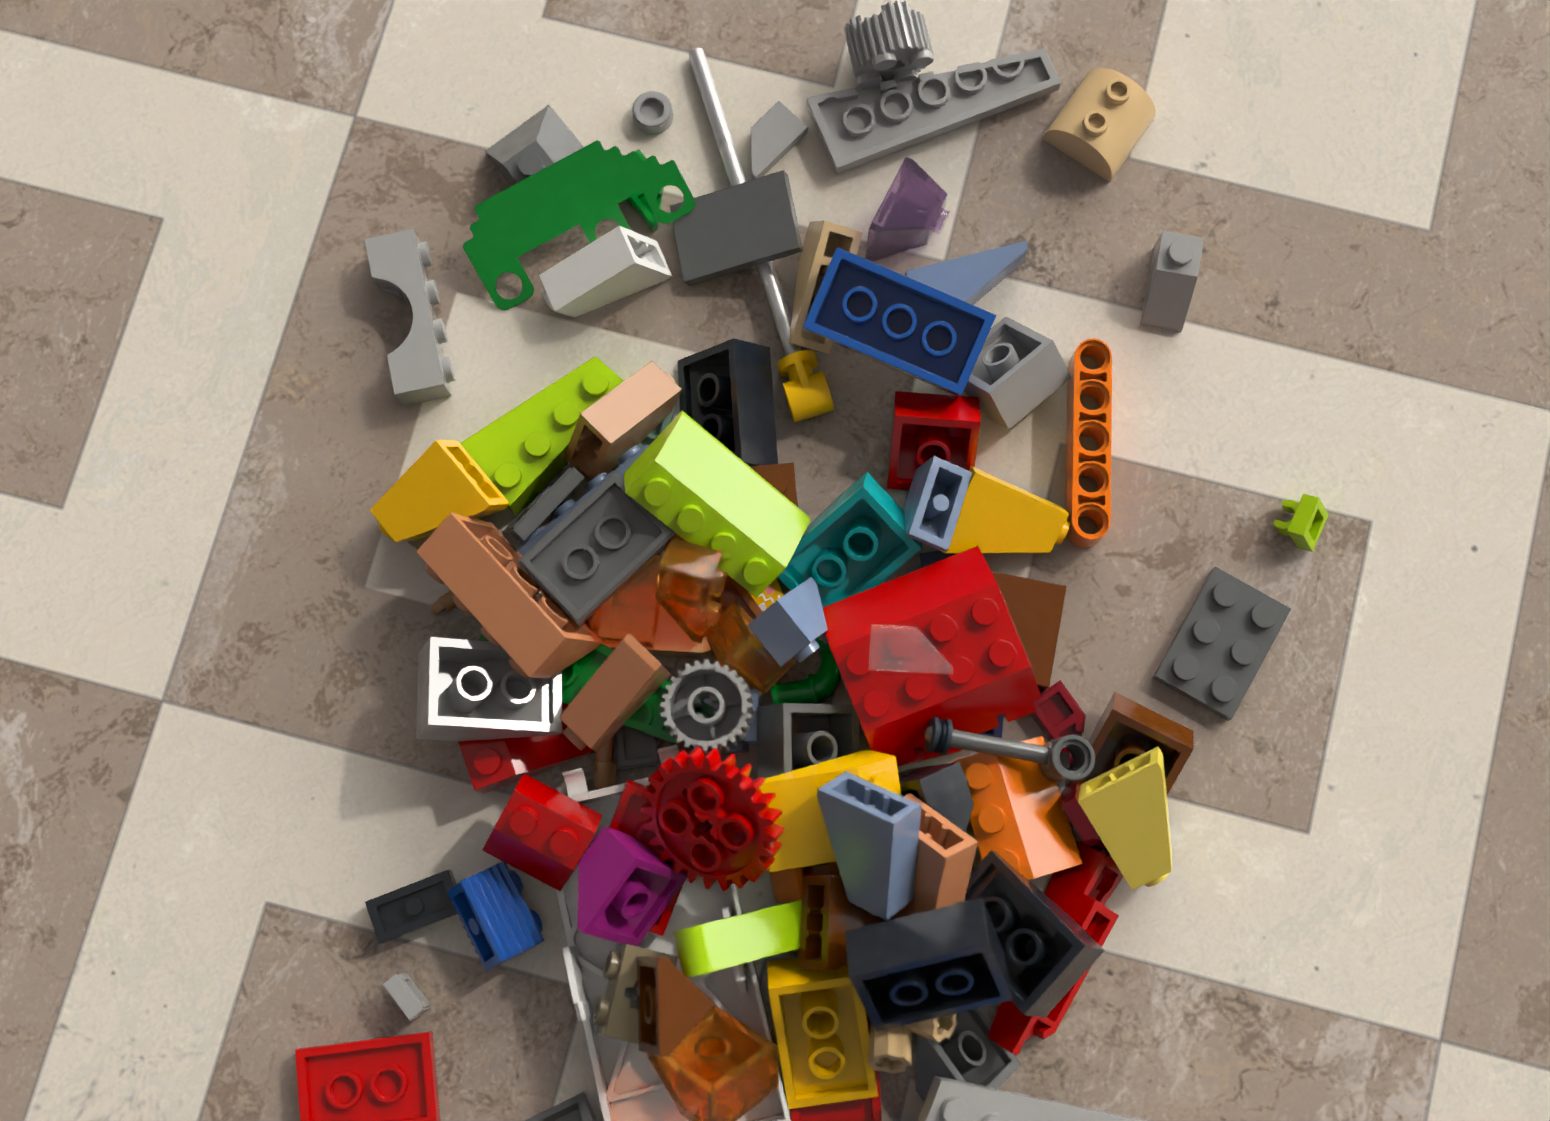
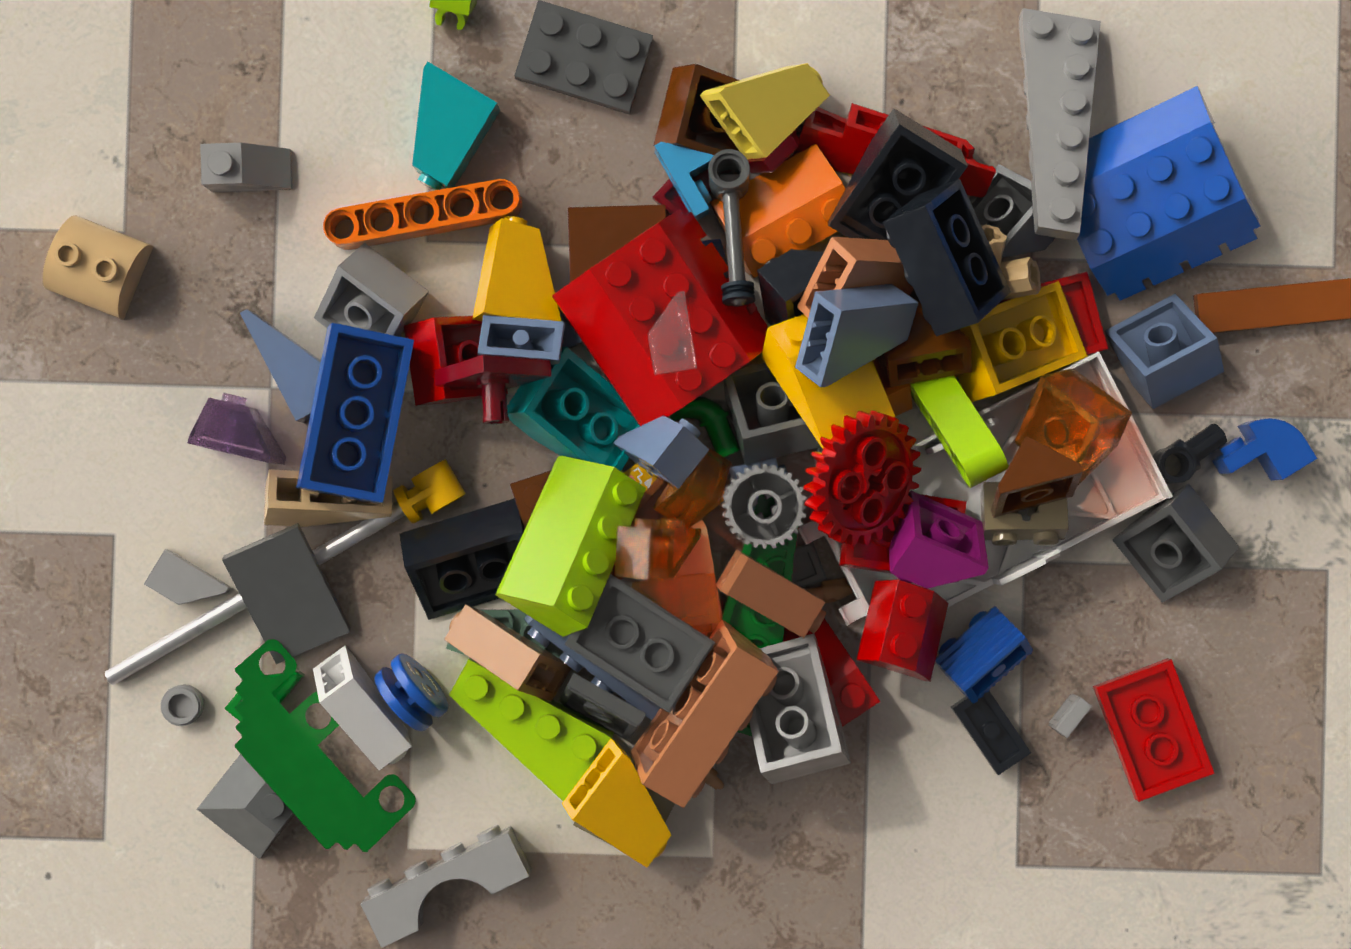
camera: 110 degrees left, 10 degrees up
(608, 322) = (411, 692): none -> blue head
(888, 45) = (66, 487): light grey brick -> none
(894, 115) = (131, 464): light grey wing -> none
(904, 465) = (493, 377): none -> dark red tile
(1085, 714) = (681, 166): none -> dark azure slope
(1172, 487) = (449, 127): none -> teal slope

